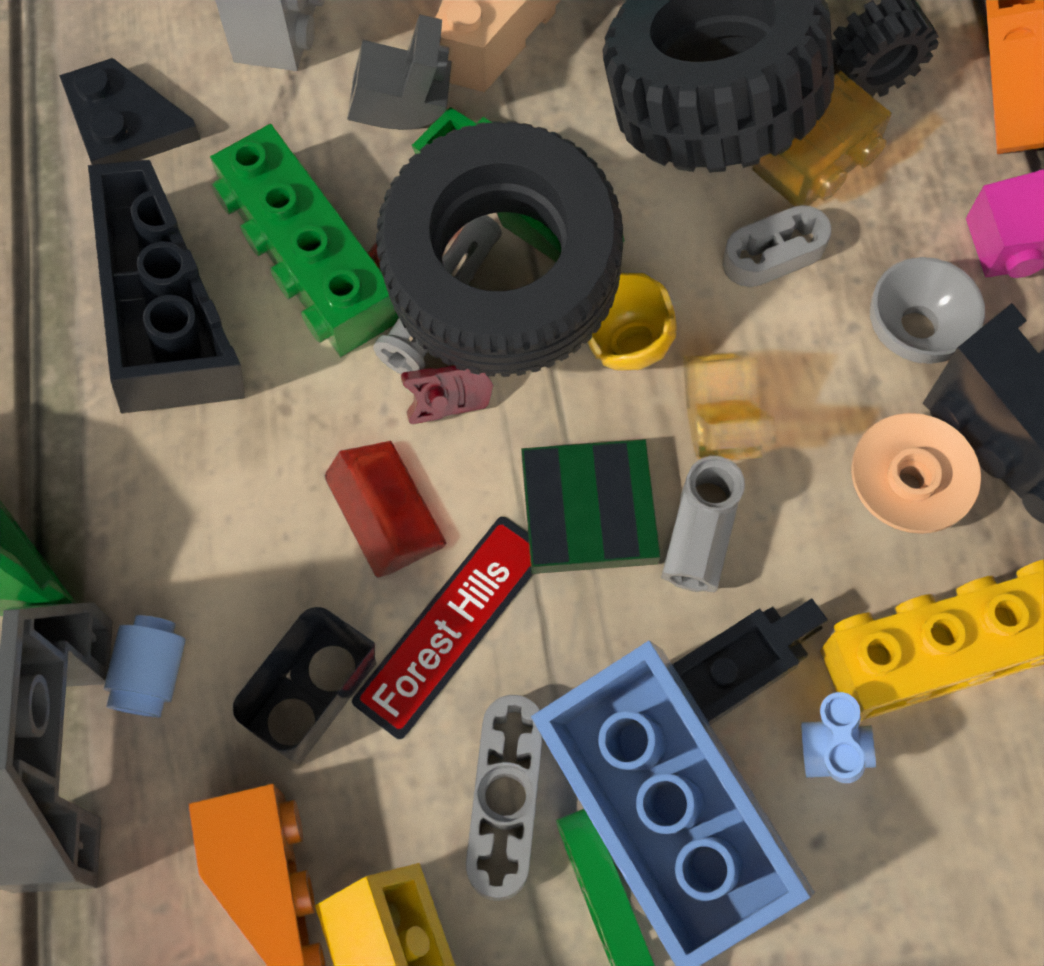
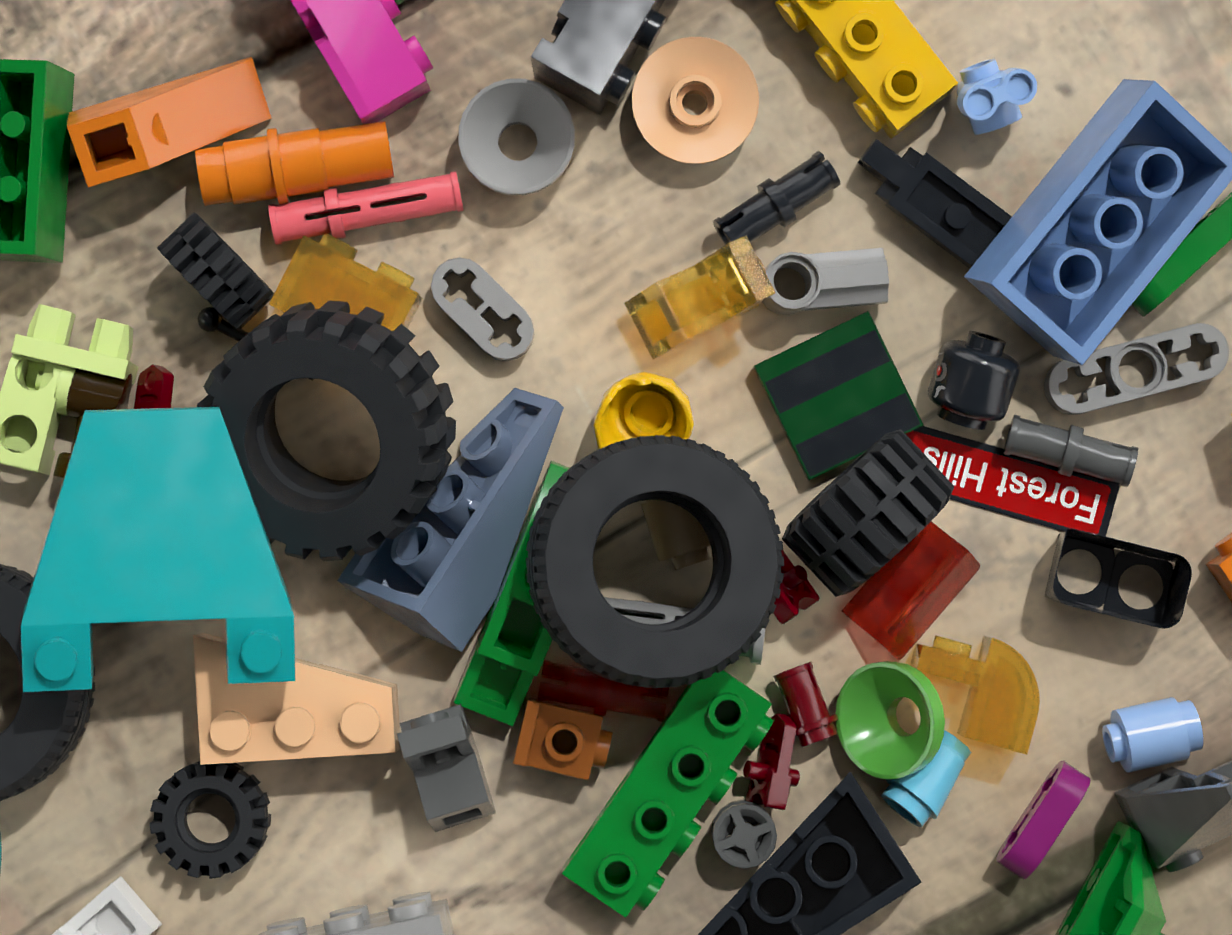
camera: 115 degrees left, 20 degrees up
(117, 536) = (1043, 820): none -> magenta beam
(205, 448) = (926, 790): none -> medium azure cone
(227, 272) = (748, 843): none -> dark grey wheel
(256, 540) = (1001, 694): none -> clear yellow brick
(271, 430) = (870, 725): none -> bright green piece
(276, 325) = (772, 773): none -> dark red piece
(320, 374) = (806, 704): none -> dark red pin
(375, 167) = (540, 724): none -> dark orange brick
(450, 696) = (1071, 450): none -> dark grey pin
(470, 461) = (868, 513): none -> black tyre
(555, 624) = (973, 381): none -> black head
(581, 111) = (457, 549): none -> sand blue wedge
(793, 513) = (778, 200): none -> black pin
(903, 133) = (290, 222): none -> coral pin
(954, 141) = (293, 163): none -> orange piece

